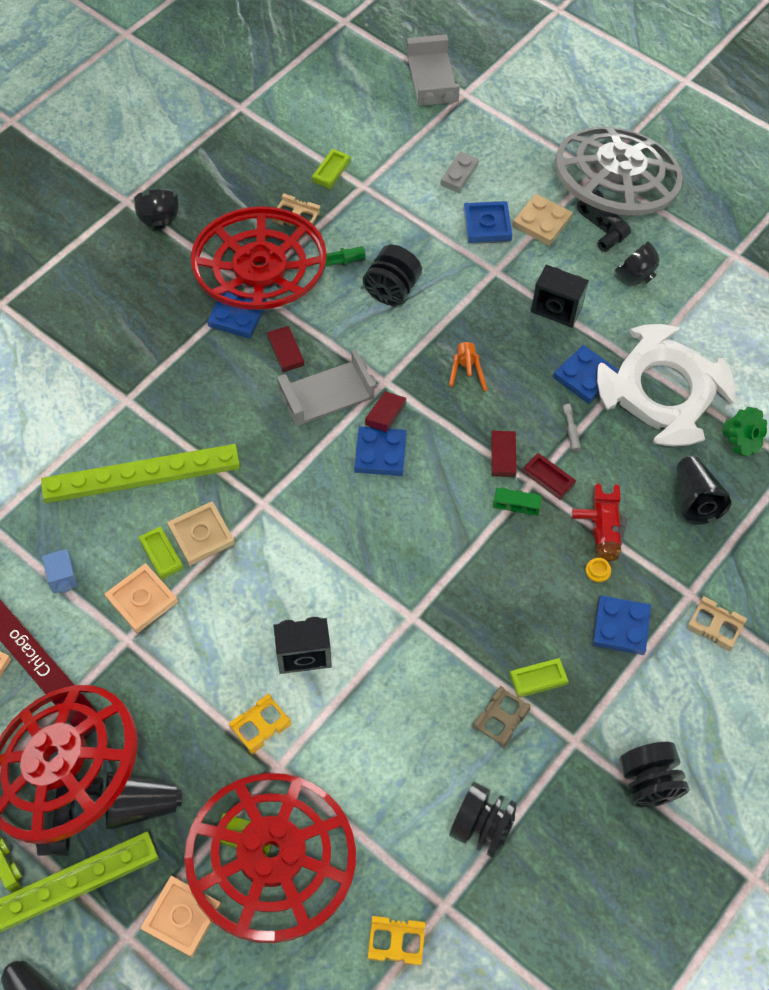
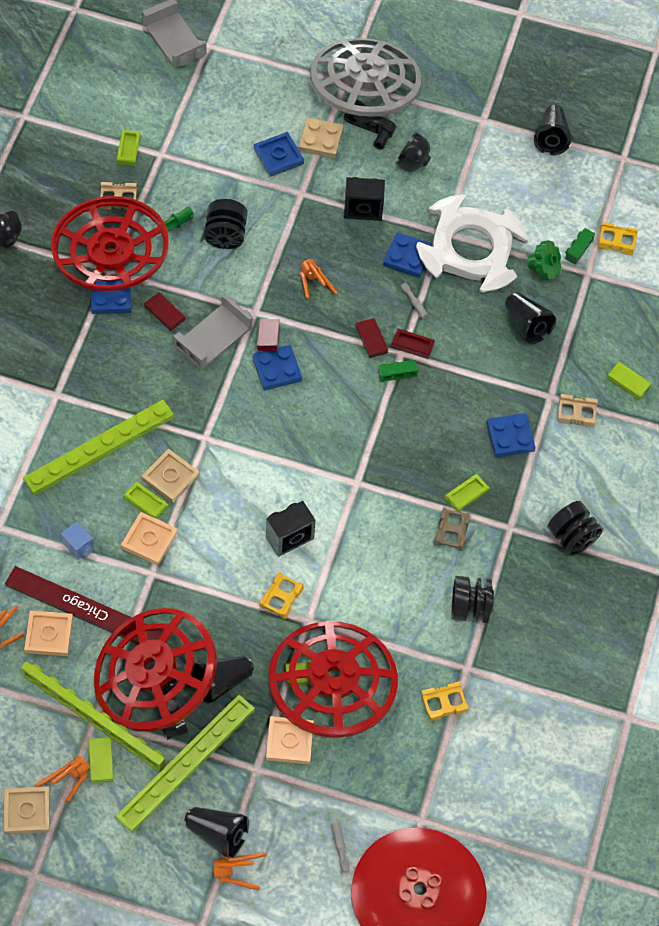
camera: 25 degrees left, 0 degrees up
(459, 172) = (236, 117): light grey plate -> none
(598, 570) = (478, 401): yellow plate -> none
(608, 522) = (473, 364): red piece -> none

